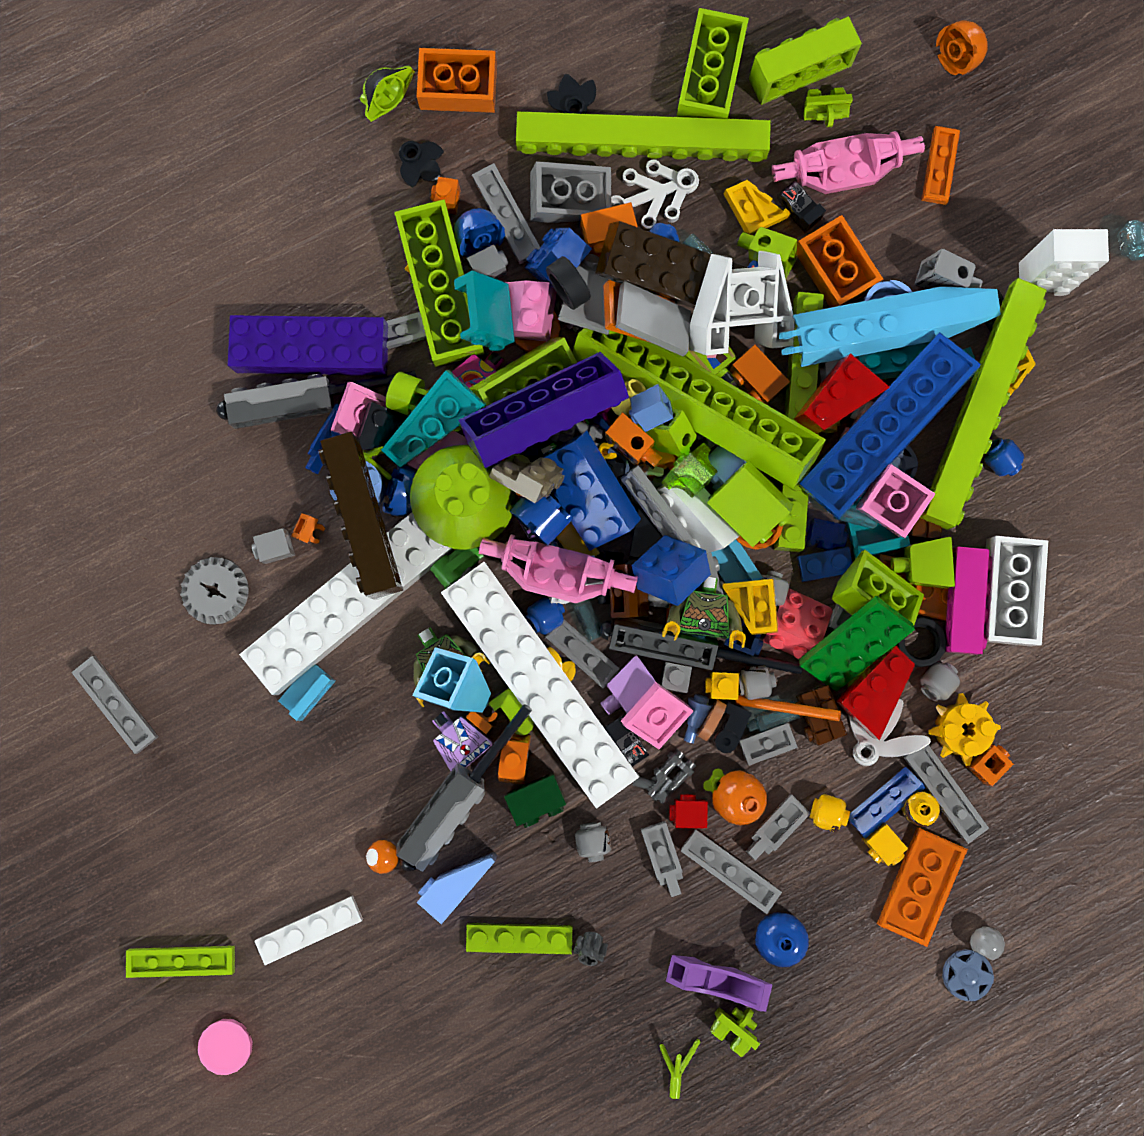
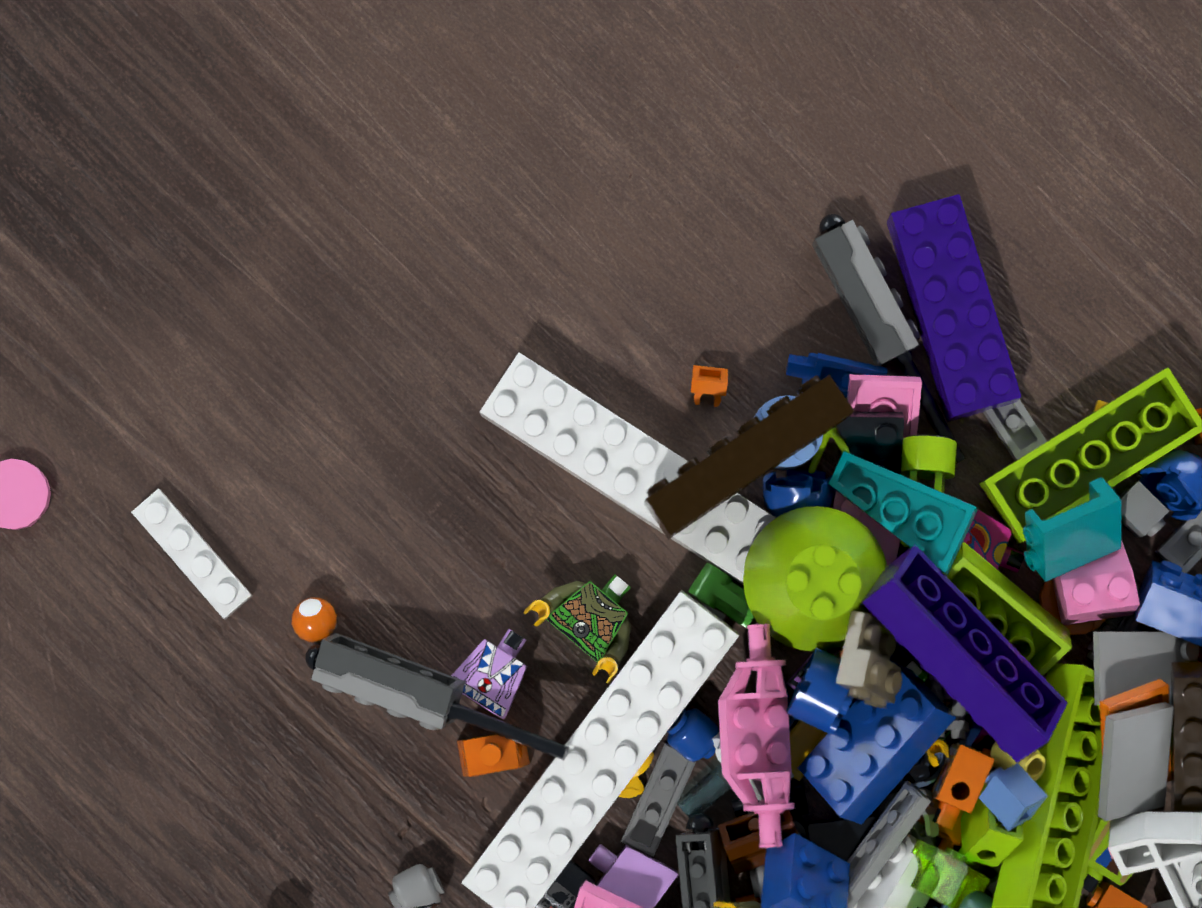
camera: 70 degrees right, 0 degrees up
(115, 704) = (404, 210): light grey plate -> none
(180, 961) = (104, 402): lime plate -> none
(230, 583) = (606, 308): light grey gear -> none
(273, 546) = (672, 347): light grey brick -> none
(306, 692) = (496, 451): medium azure panel -> none
(444, 894) = (302, 724): light blue slope -> none
(453, 682) = (568, 644): medium azure slope -> none
(481, 721) = (528, 691): orange tile -> none
(511, 706) = (558, 729): lime leg -> none
(519, 938) = (262, 832): lime plate -> none
(536, 799) = (448, 800): dark green brick -> none
(568, 283) = (1146, 632): black tyre -> none

